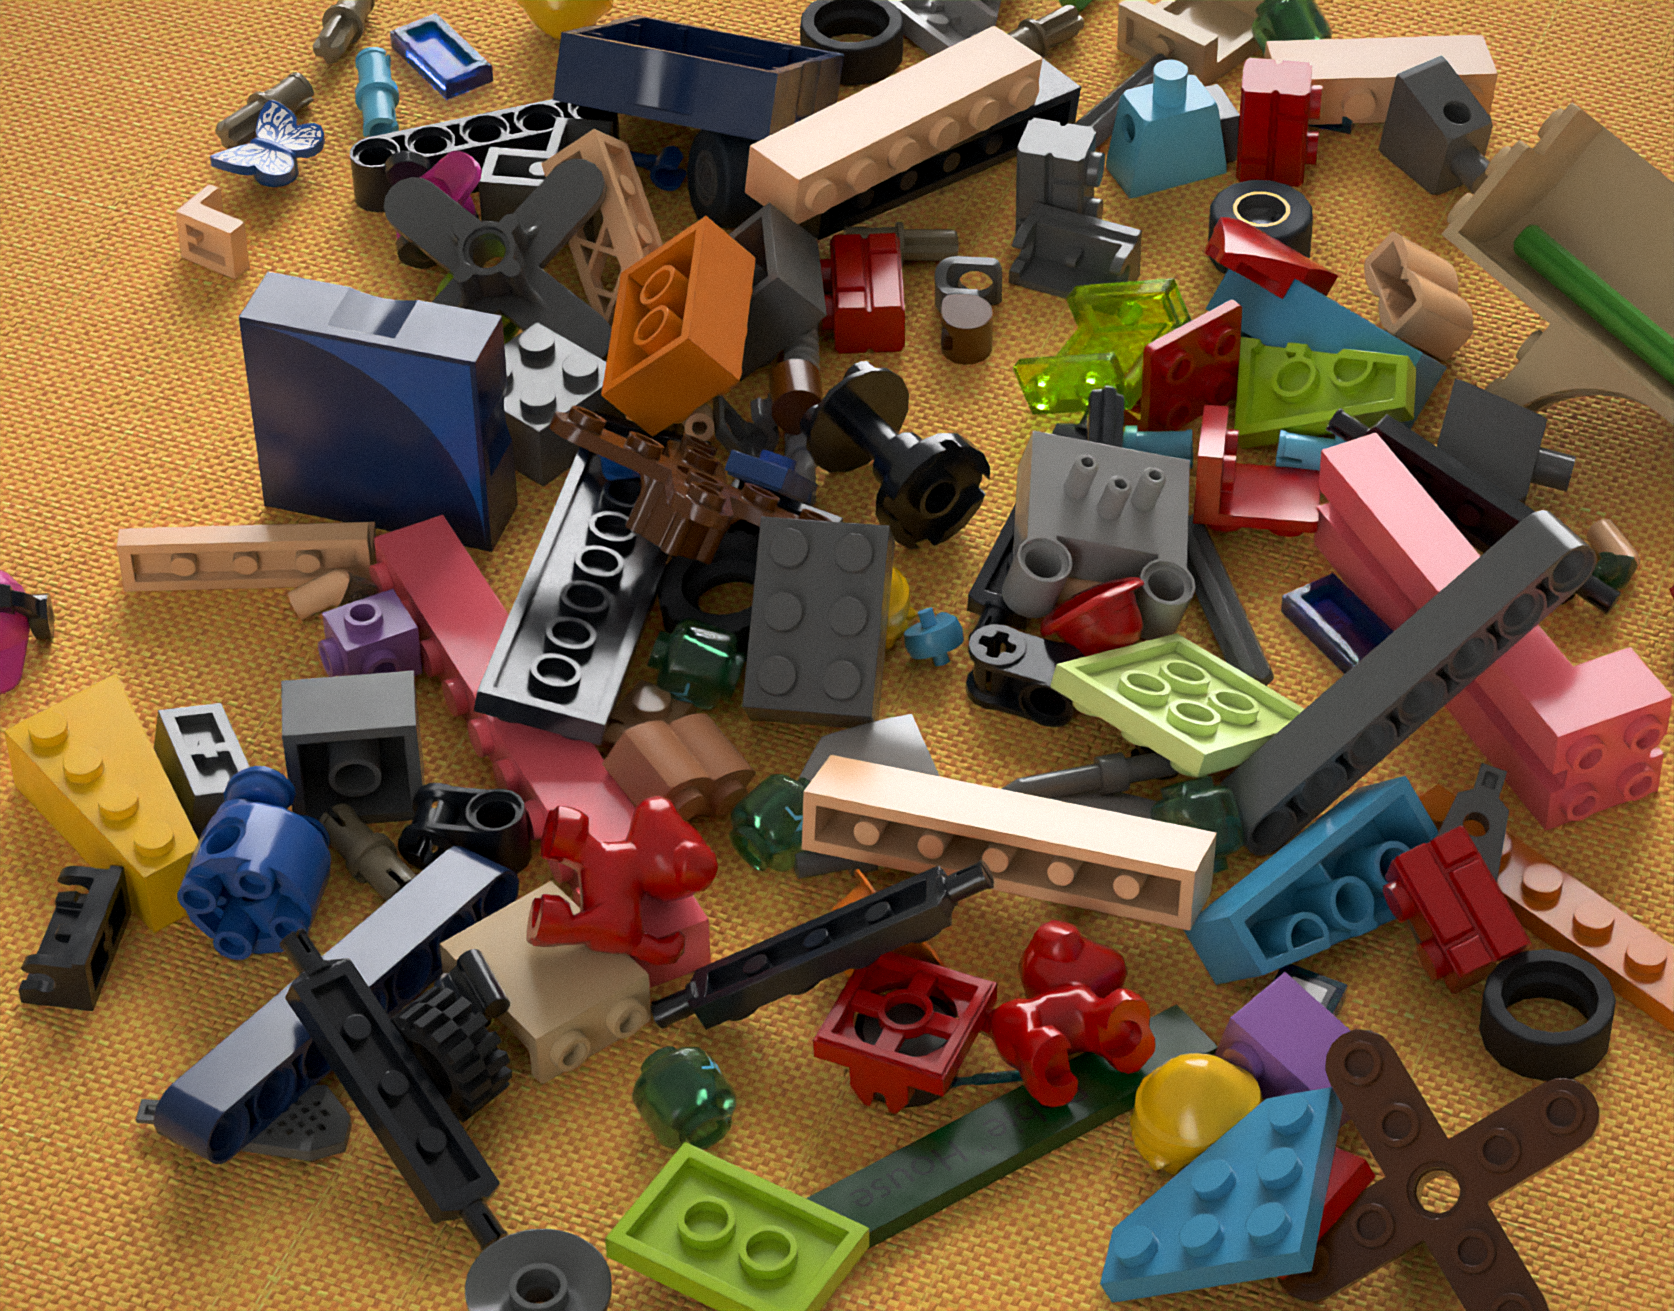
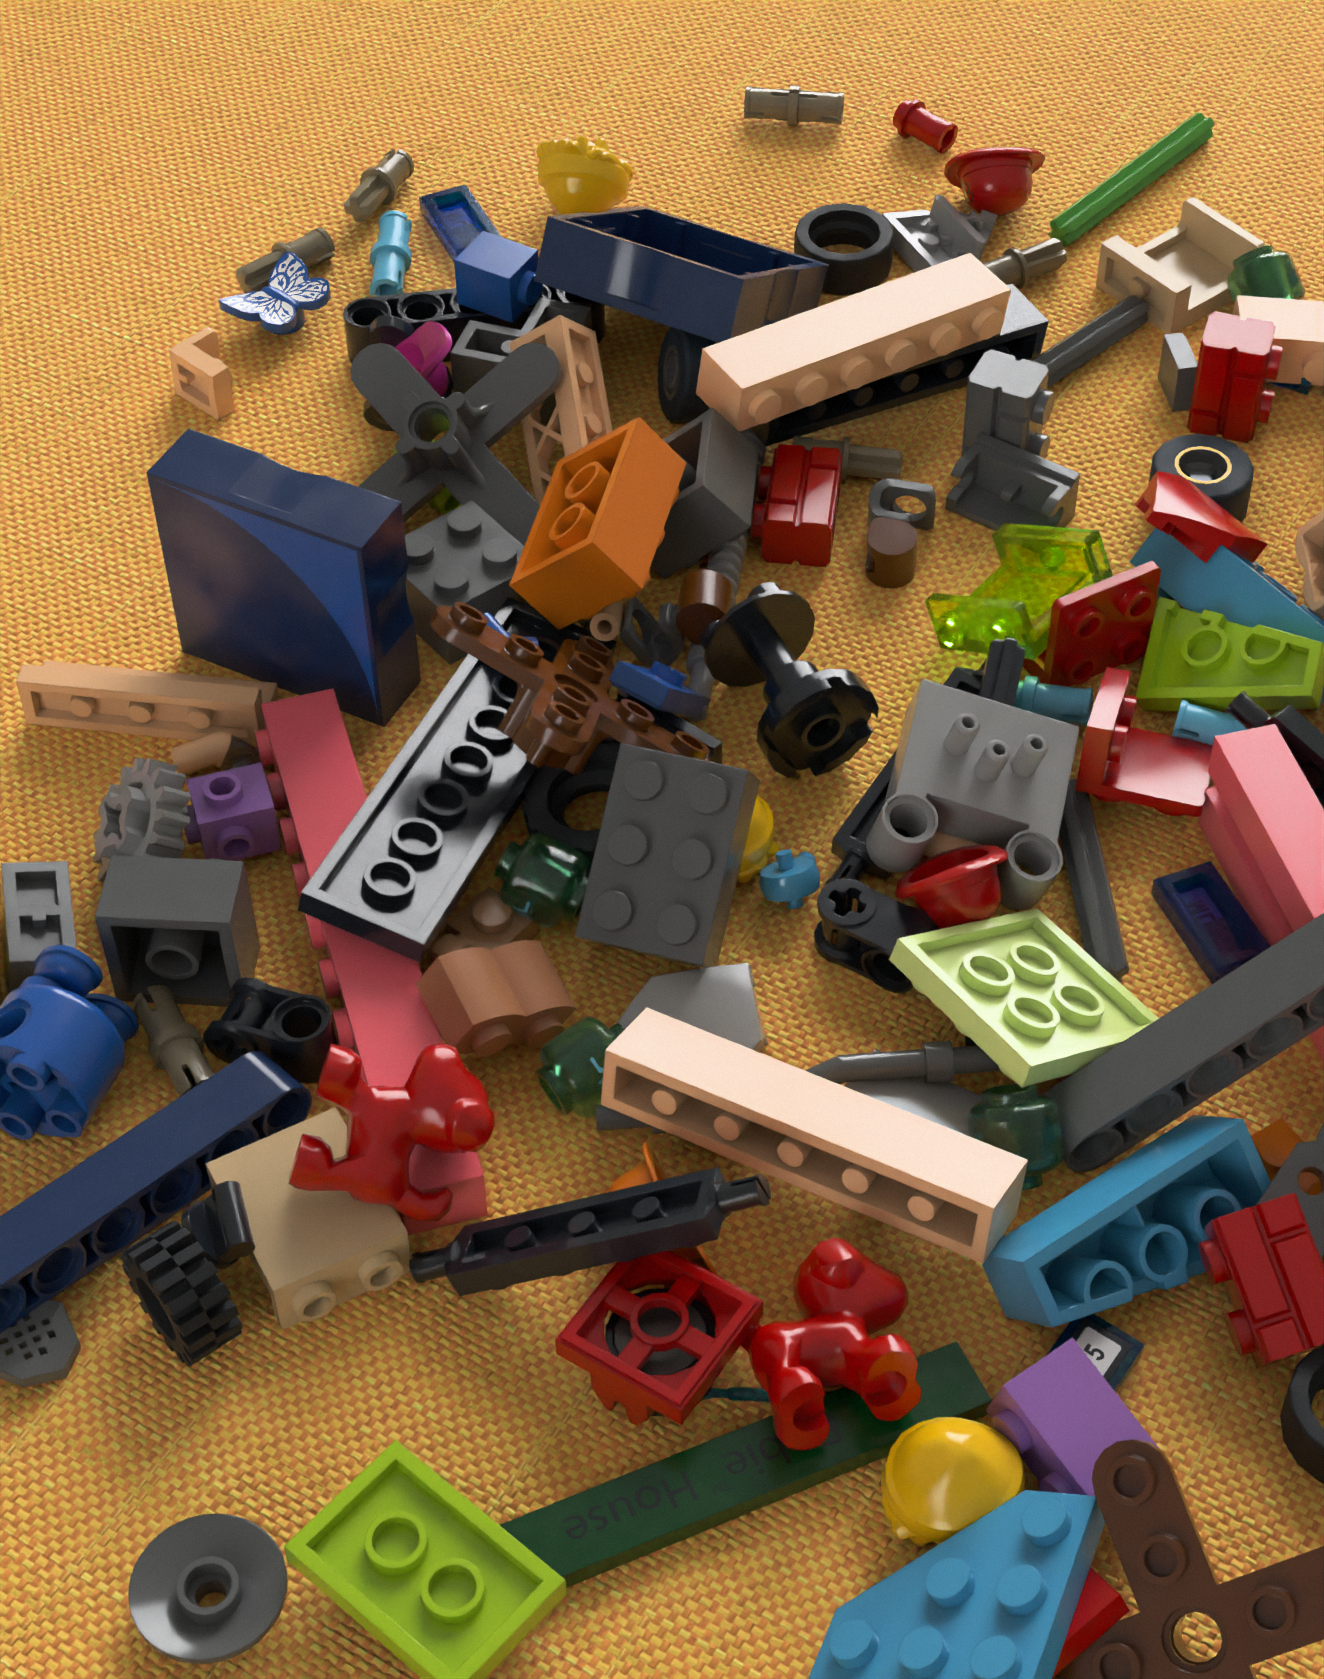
camera: 10 degrees right, 5 degrees up
(286, 644) = (142, 814): none -> light grey gear
(391, 1090) = (111, 1332): black plate -> none
(509, 101) = (497, 276): none -> blue brick
(662, 167) = (637, 356): blue hand -> none
(684, 1097) = (416, 1377): clear green head -> none
(1166, 133) = (1123, 376): medium azure torso -> none

